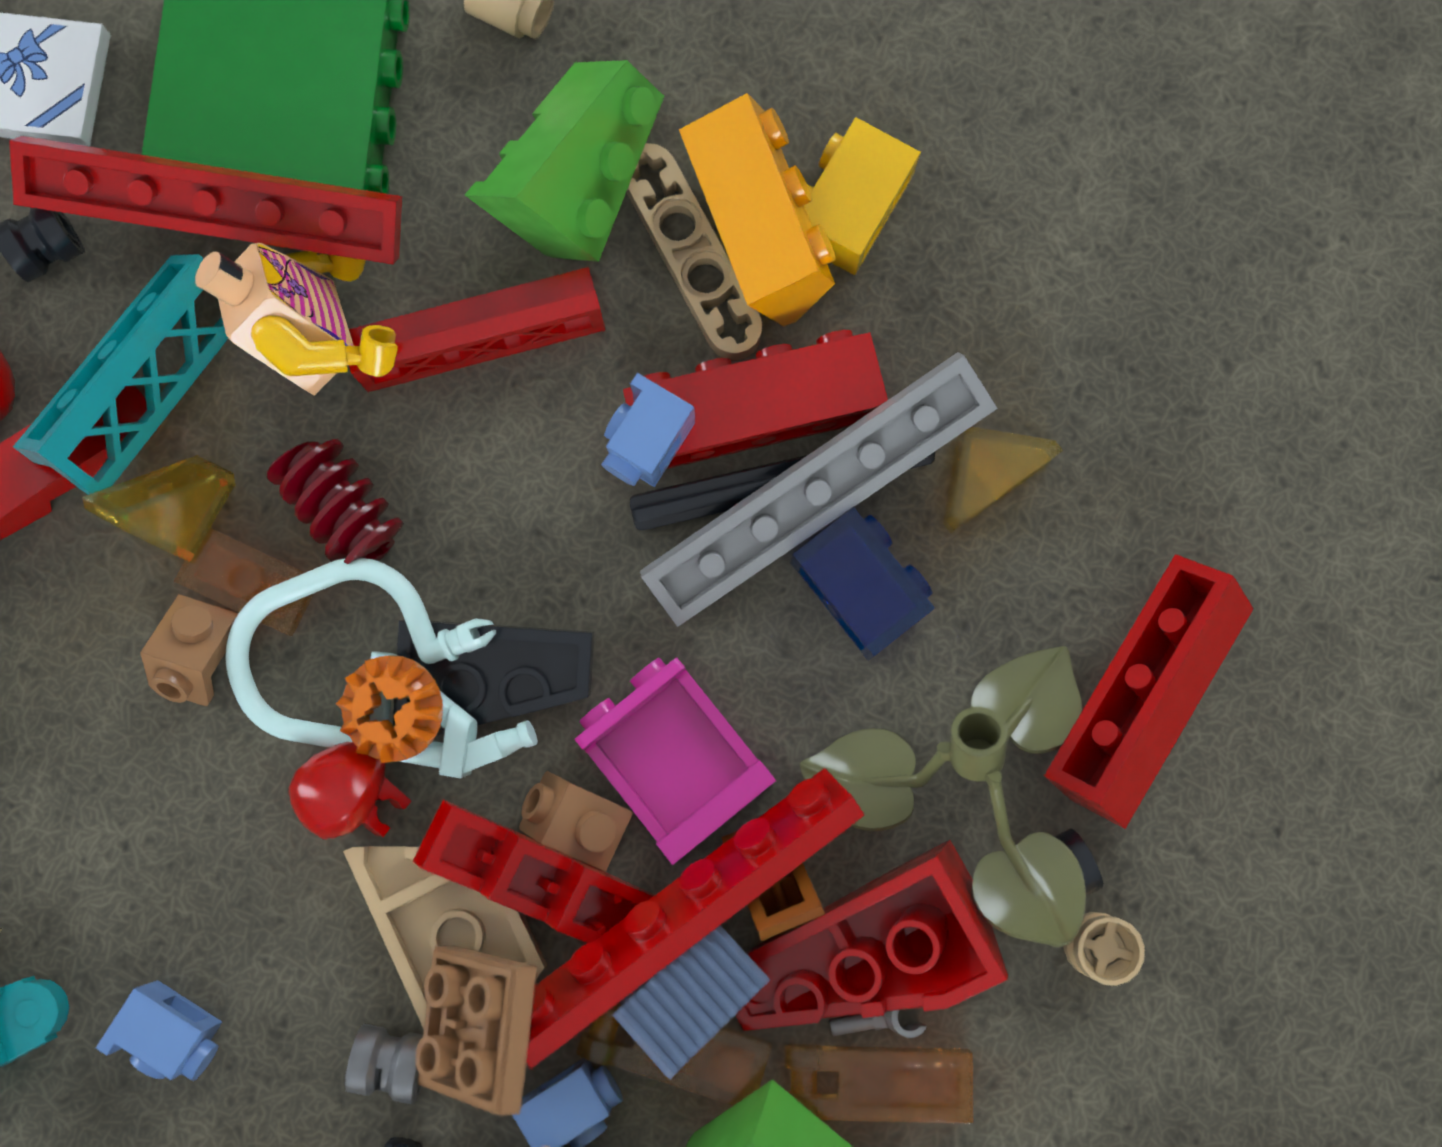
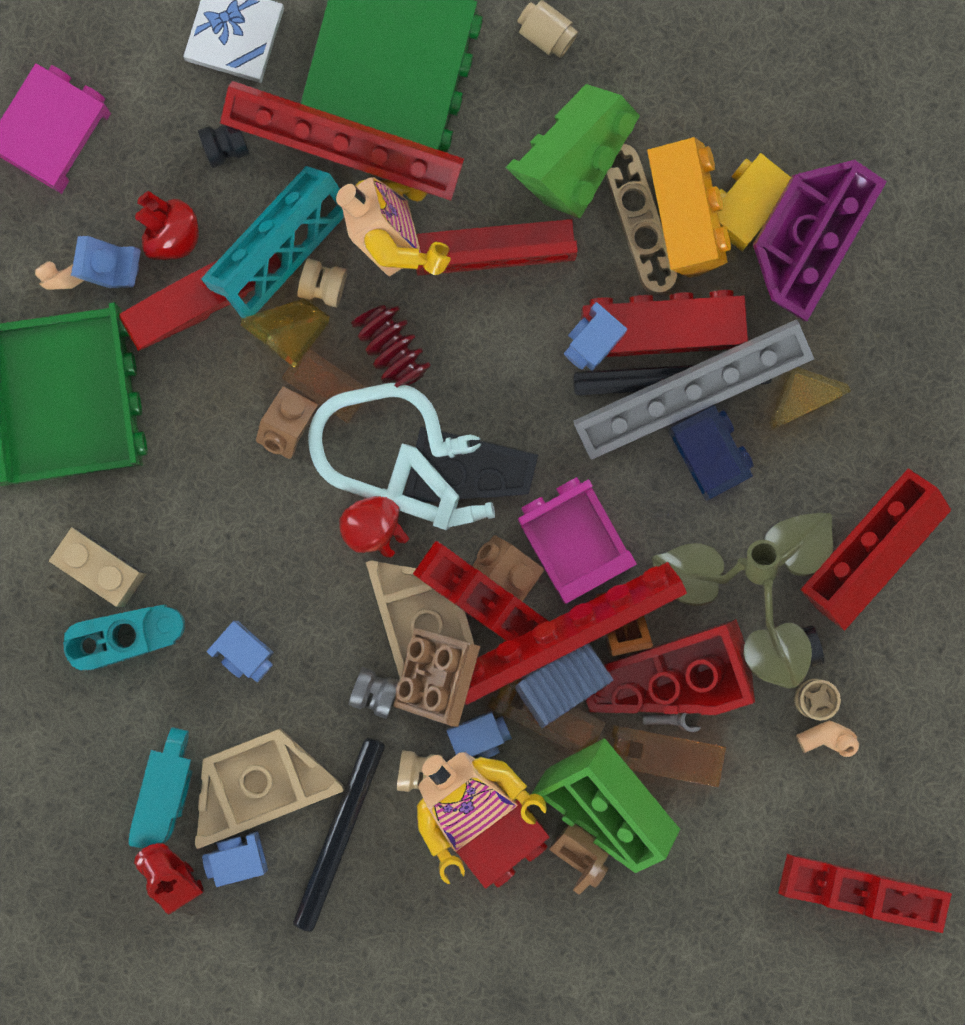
camera: 10 degrees right, 5 degrees up
(216, 424) = (329, 279): none -> tan wheel
(416, 721) = (419, 463): orange gear -> none
(959, 217) = (813, 232): none -> magenta wedge
(1137, 1001) = (831, 735): none -> light nougat arm

